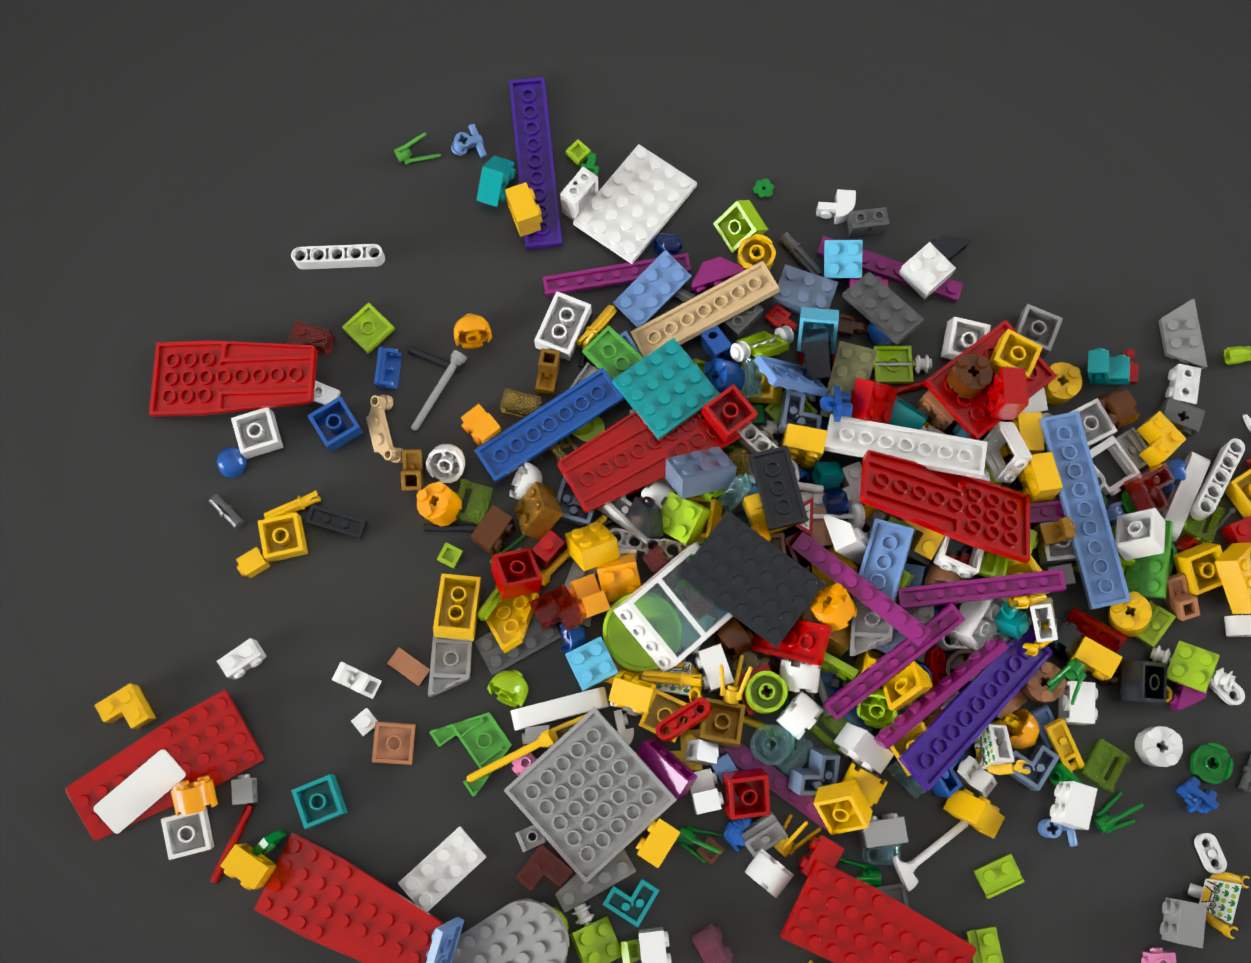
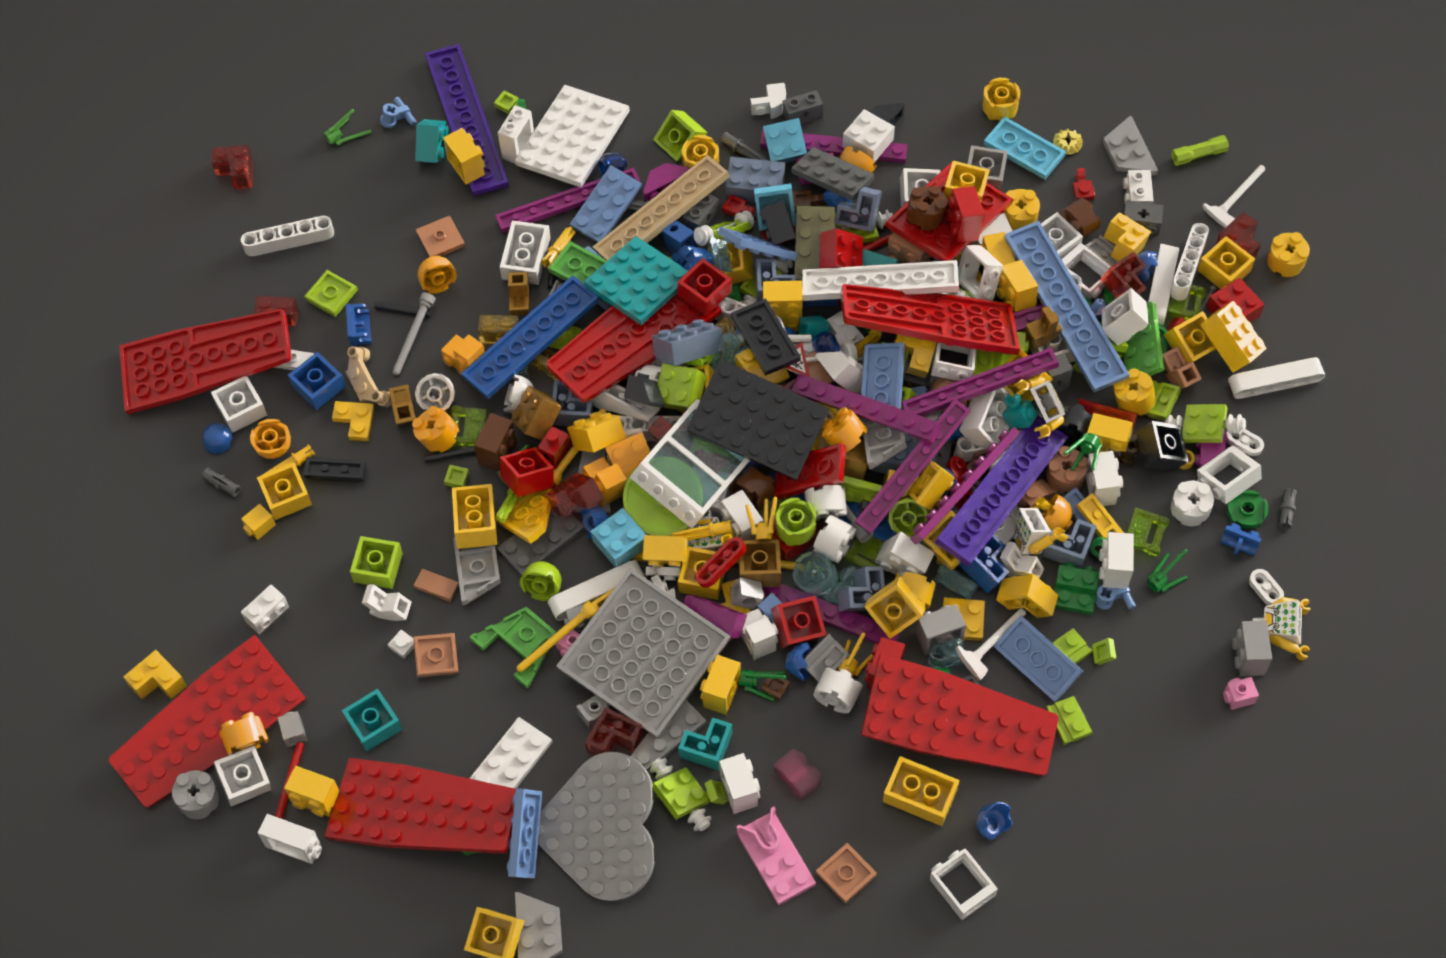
camera: 10 degrees left, 15 degrees down
(129, 840) = (195, 794): none -> light grey brick
(139, 791) = (184, 746): white piece -> none
(219, 911) = (290, 839): none -> white window
(268, 843) = (328, 765): green plate -> none
(279, 479) = (270, 439): none -> light orange cylinder
(304, 165) = (236, 162): none -> clear red brick
(355, 633) = (376, 562): none -> lime brick
(371, 469) = (359, 417): none -> yellow plate
(485, 289) = (440, 237): none -> nougat plate
(764, 184) = (695, 100): green plant -> none
(838, 403) = (807, 258): blue hips -> none
(900, 359) = (860, 215): none -> sand blue brick
(909, 295) = (858, 159): none -> light orange cylinder
(913, 811) = (972, 614): none -> yellow plate
(970, 882) = (1038, 658): none -> medium blue plate
(1023, 811) = (1076, 588): none -> green plate
(1035, 887) = (1104, 651): none -> lime plate
(1068, 254) = (1000, 99): none -> yellow brick
(1079, 312) = (1025, 148): none -> medium azure plate
(1107, 369) = (1061, 189): teal brick -> none
(1117, 317) = (1075, 141): none -> light yellow gear
(1219, 715) = (1232, 456): none -> white window

